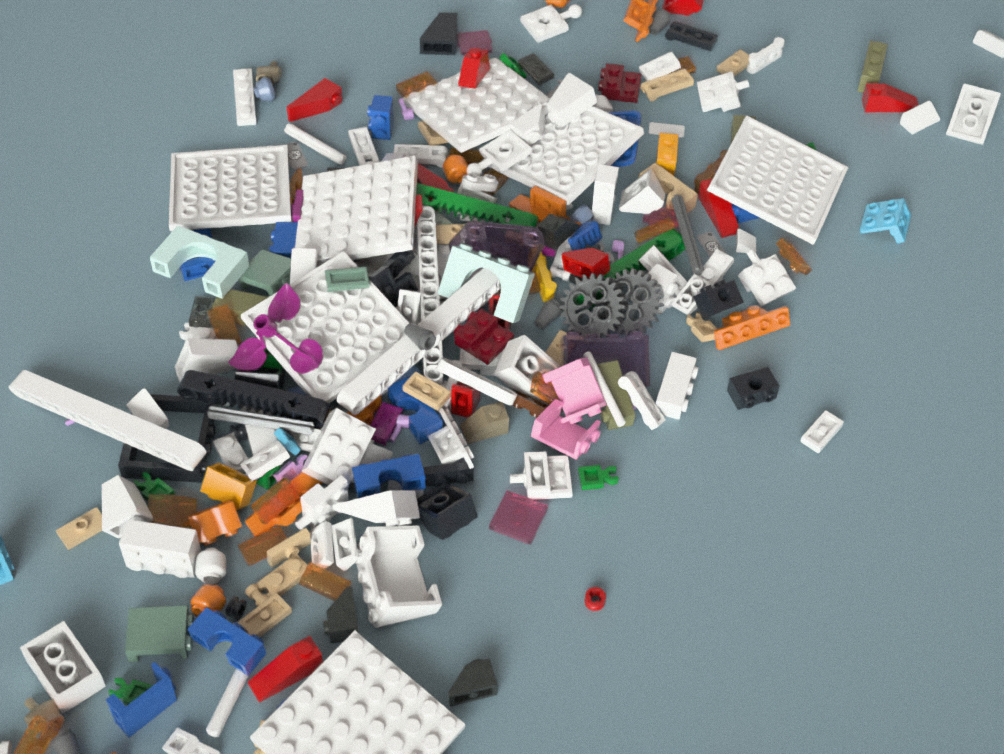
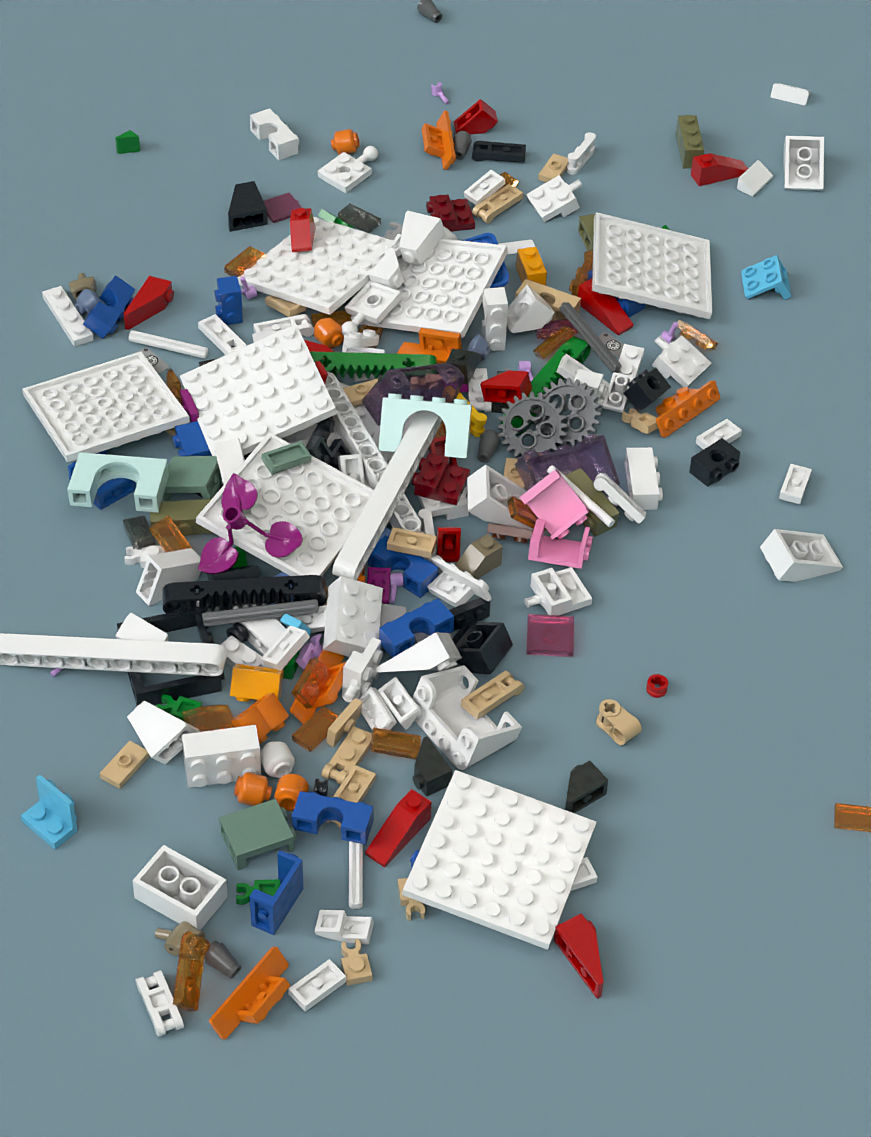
camera: 20 degrees left, 5 degrees down
(175, 588) = (252, 789): none -> orange head
(268, 106) = (103, 317): none -> blue arch
(421, 337) = (390, 489): dark grey cone -> none
(435, 561) = (492, 694): none -> tan plate
(476, 381) = (457, 520): white beam -> none
(537, 625) = (618, 723): none -> tan piece
(586, 234) = (491, 363): blue slope -> none
(594, 478) = (605, 580): green plate -> none
(745, 242) = (643, 333): white slope -> none
(765, 250) = (669, 336): none -> lavender hand
(776, 361) = (724, 430): none -> white plate
(793, 506) = (799, 555): none -> white slope

